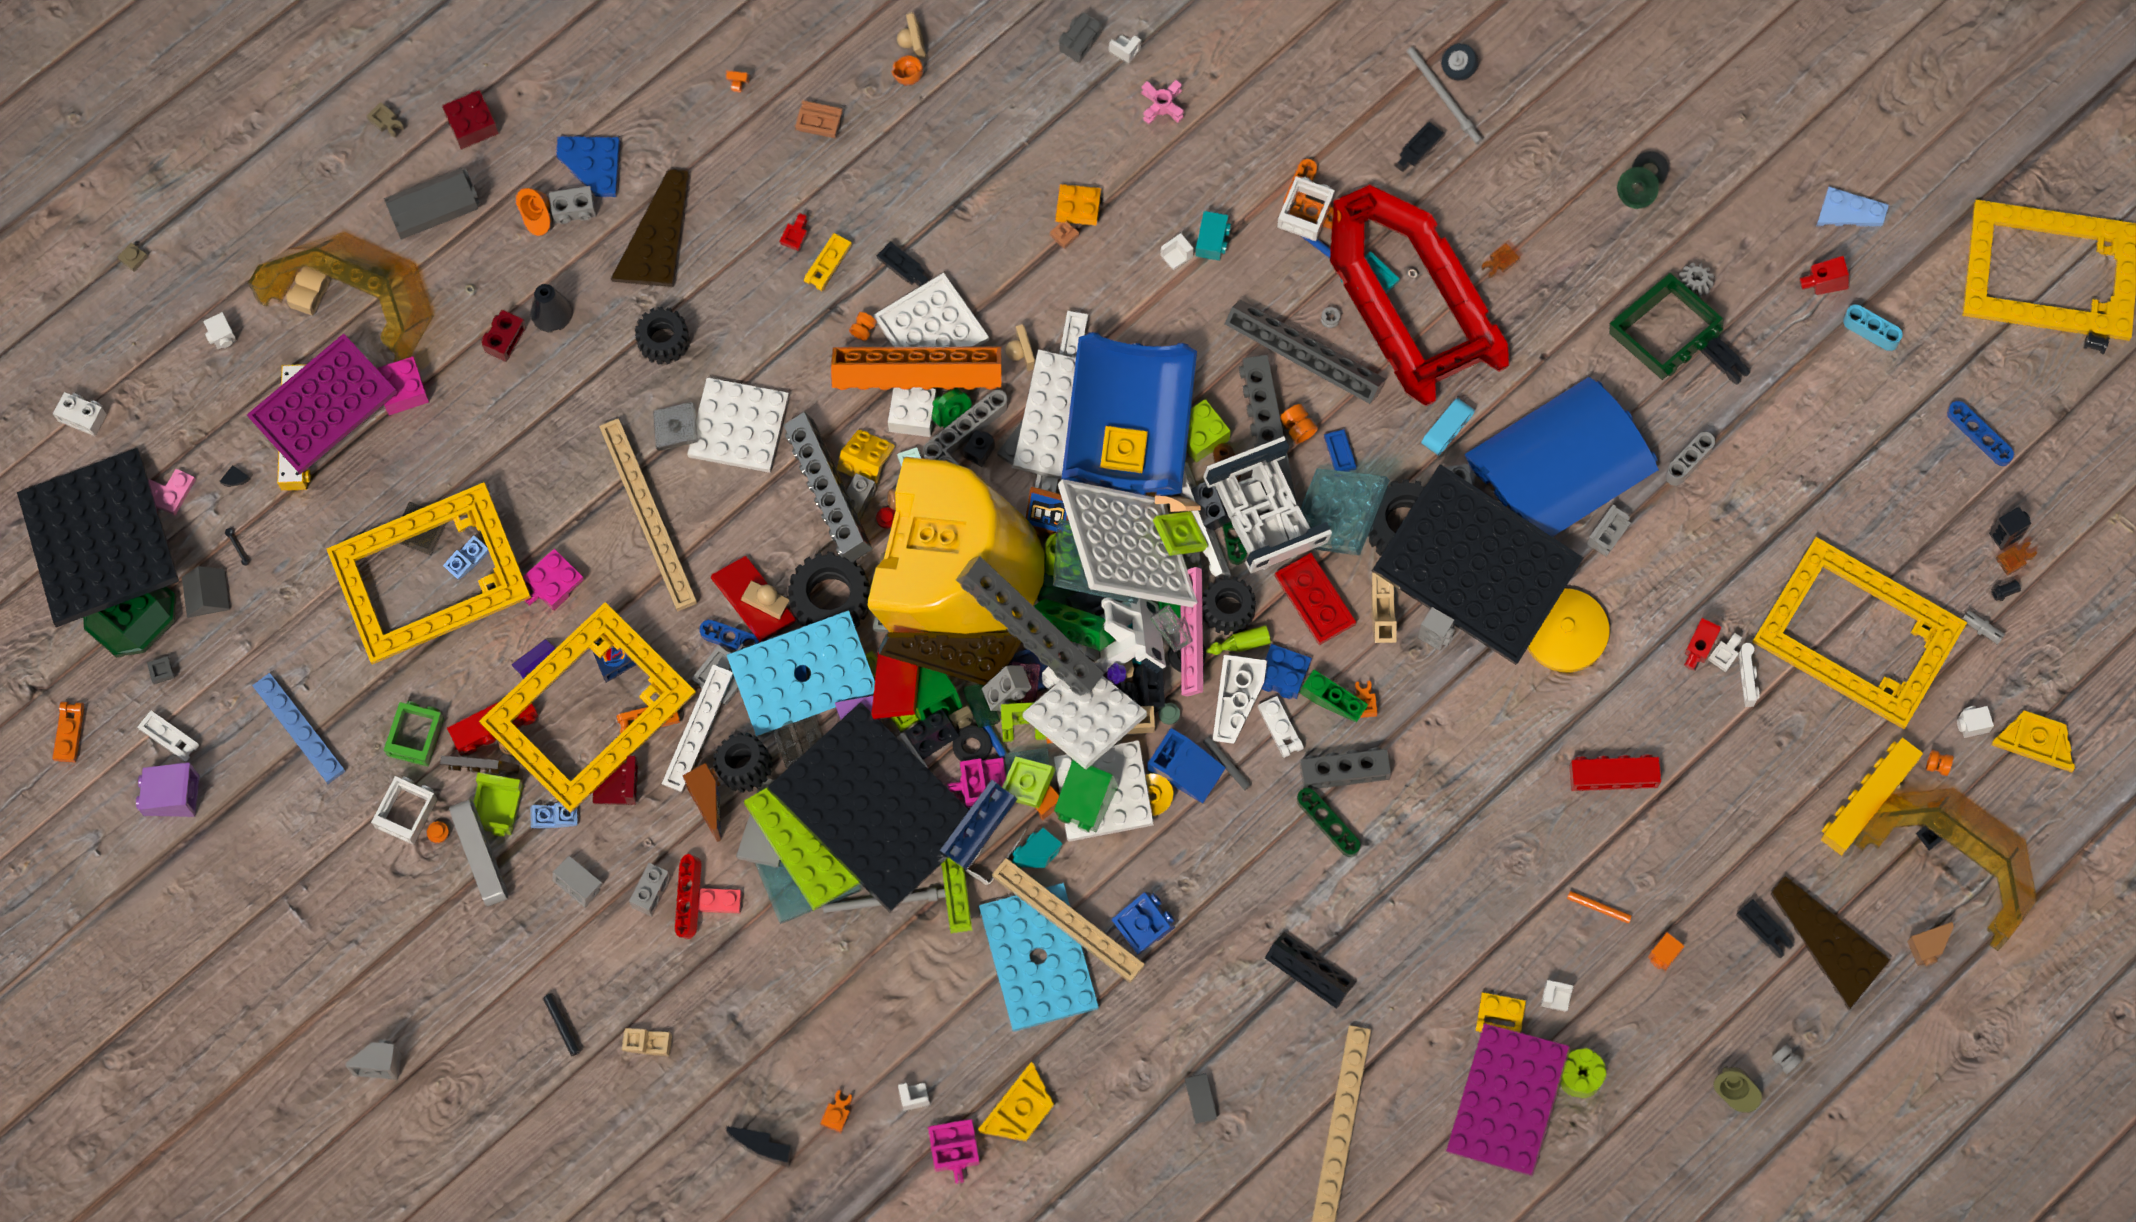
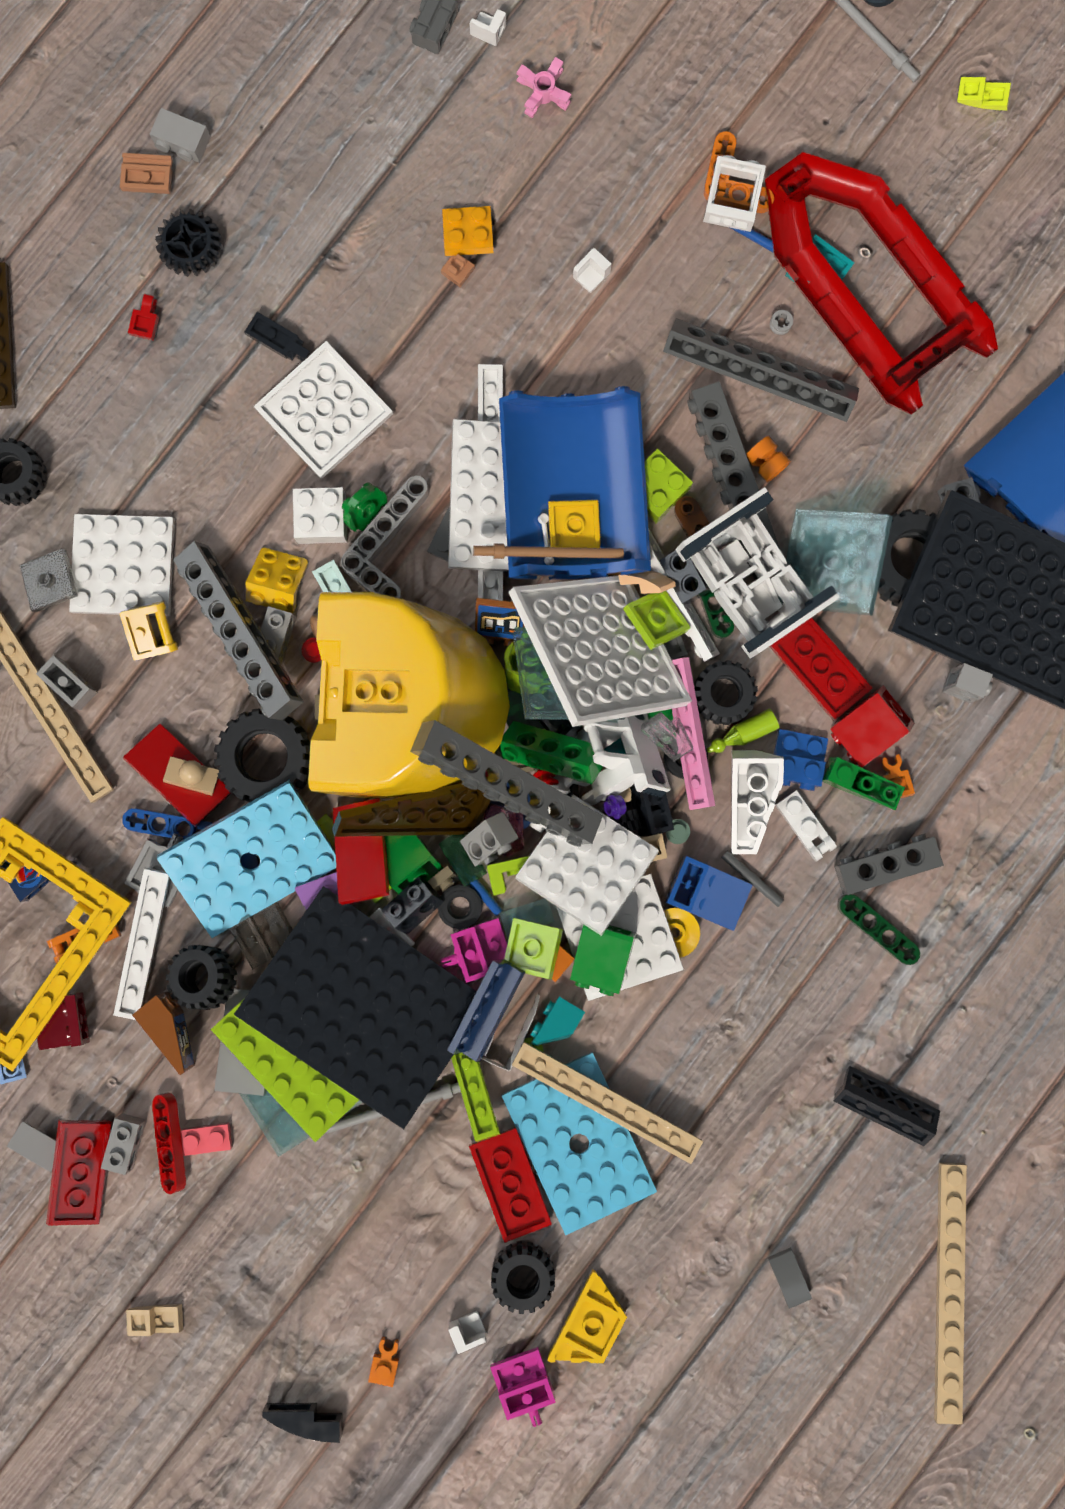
camera: 15 degrees left, 15 degrees up
(561, 1024) = (54, 1316): black piece -> none
(607, 906) = (77, 1172): none -> red tile
(675, 509) = (66, 683): none -> light grey brick
(737, 79) = (41, 138): orange tile -> none
(744, 479) = (140, 631): none -> yellow plate
(827, 177) = (170, 244): none -> black gear
(828, 261) = (189, 348): yellow plate -> none
(852, 94) = (180, 136): none -> light grey brick
(863, 325) = (244, 421): orange wheel -> none
(907, 70) = (239, 95): orange hair -> none
(912, 36) = (237, 52): tan tile -> none
(915, 367) = (314, 466): orange brick -> none
(965, 1037) = (523, 1298): none -> black tyre
(972, 979) = (510, 1184): none -> red plate
(979, 447) = (405, 548): black brick -> none
(1021, 348) = (432, 419): tan tile -> none
(1057, 455) = (499, 551): none -> medium nougat bar
(1098, 439) = (543, 519): none -> white hinge
(1144, 922) = (692, 1085): blue plate -> none
(1212, 236) = (629, 244): teal brick -> none
(1340, 451) = (818, 483): blue tile -> none
(1349, 653) = (872, 727): none -> red slope
(1382, 609) = (901, 675): tan arch -> none
(1419, 146) = (850, 94): black hinge -> none
(1448, 426) = (938, 433): medium azure beam -> none
(1501, 259) = (966, 220): clear orange plate -> none
(1531, 162) = (983, 94): none -> neon yellow slope

